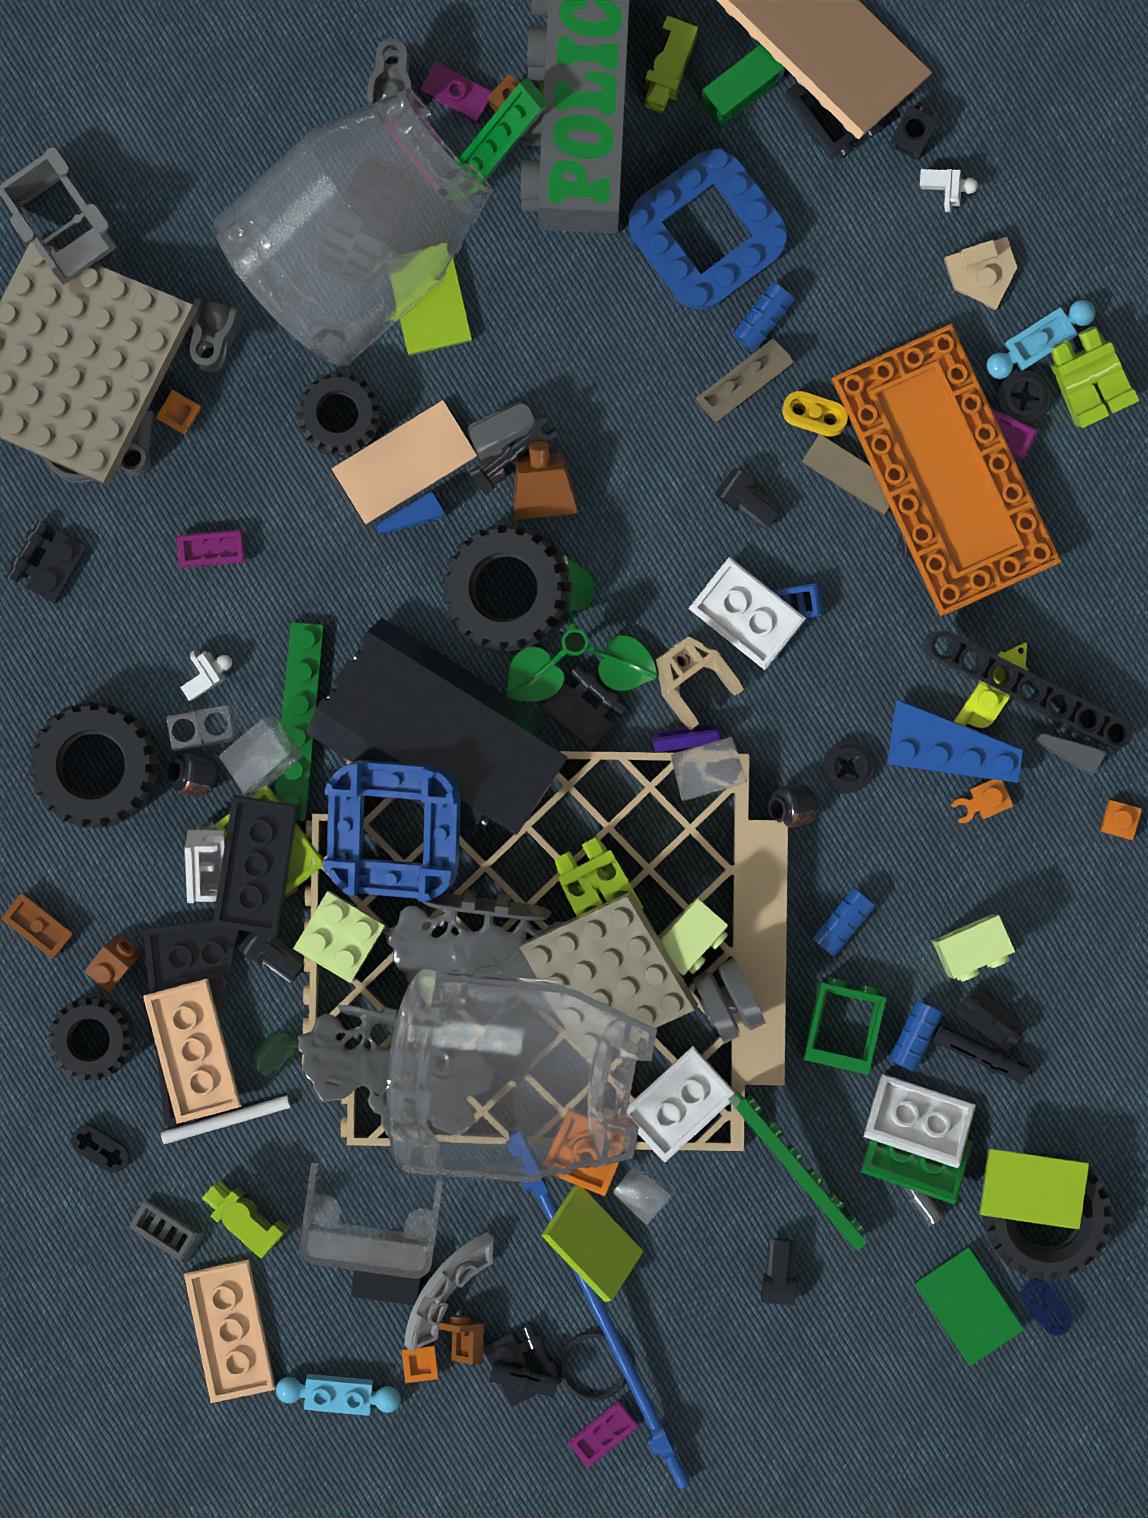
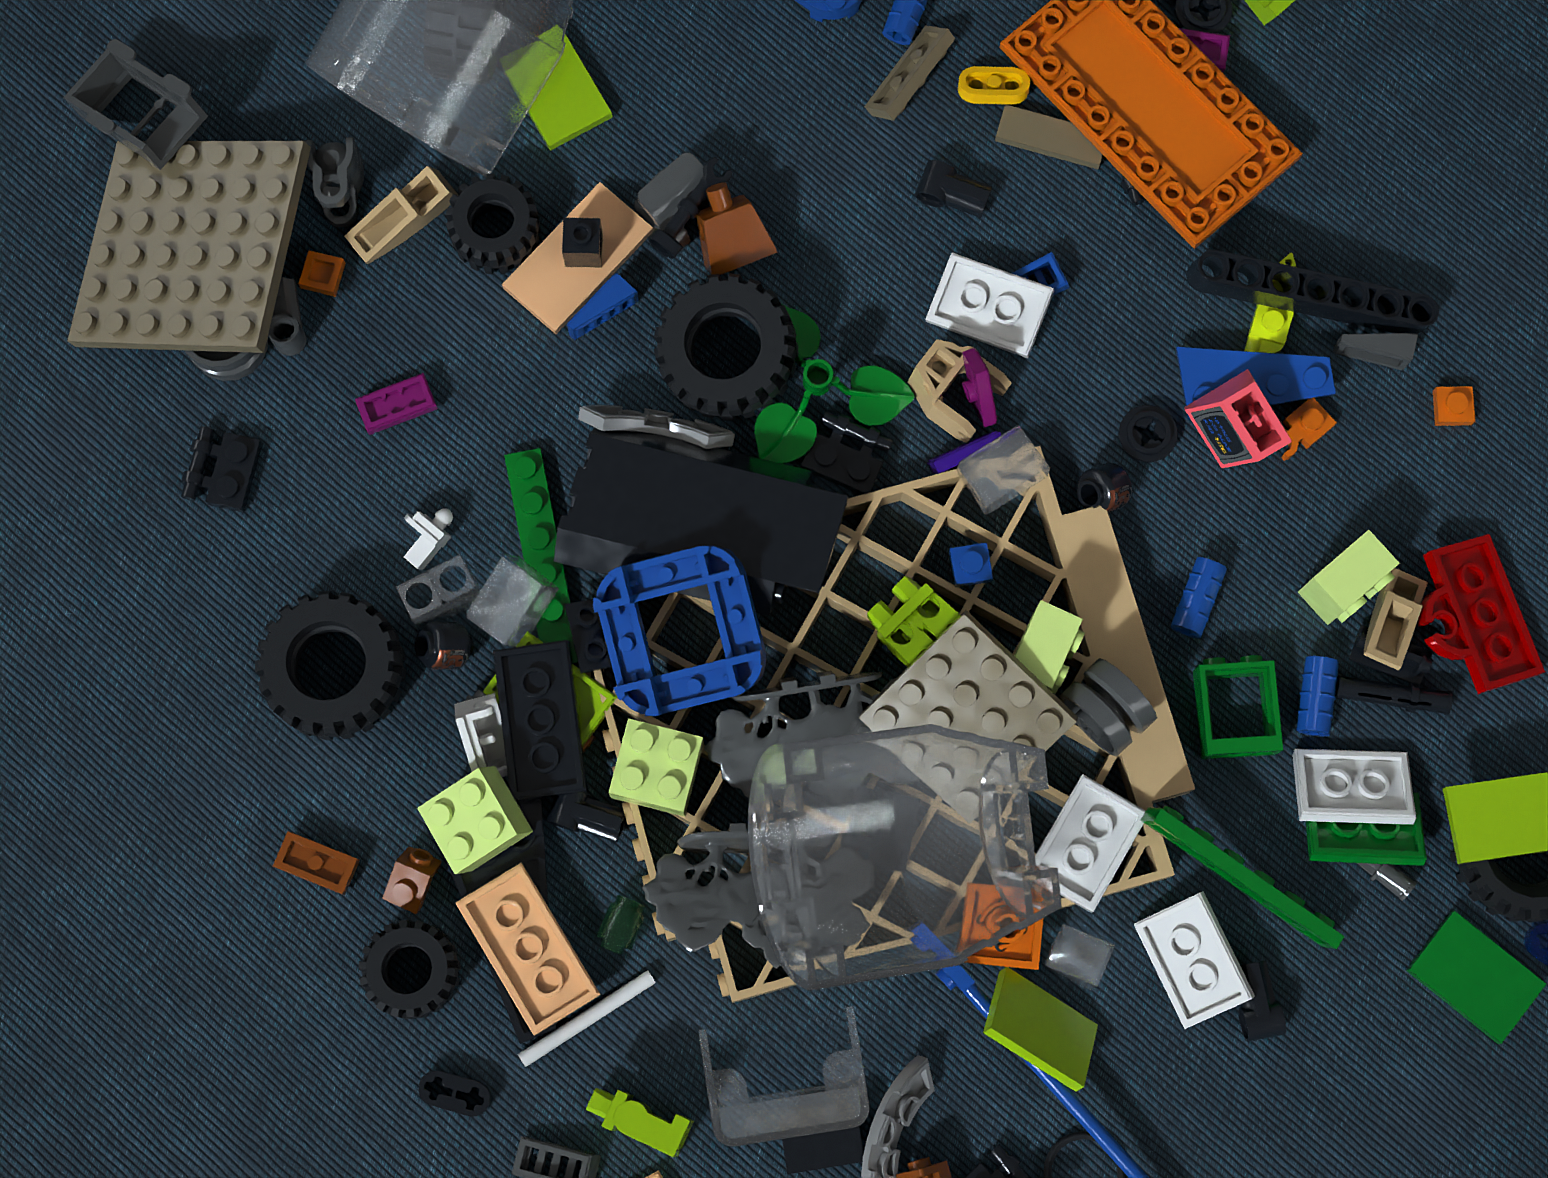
camera: 20 degrees left, 10 degrees down
(178, 934) = (475, 819): none -> yellowish green brick
(262, 379) = (401, 215): none -> tan slope
(315, 804) = (588, 637): none -> black hinge
(410, 456) = (582, 242): none -> black brick
(430, 633) = (656, 422): none -> light grey tile
(656, 841) = (971, 564): none -> blue plate
(711, 688) = (978, 387): none -> magenta plate
(738, 1223) = (1194, 960): none -> white tile
(926, 784) = (1238, 422): none -> coral slope
(999, 994) = (1394, 619): none -> tan slope
(1074, 1009) = (1478, 615): none -> red plate

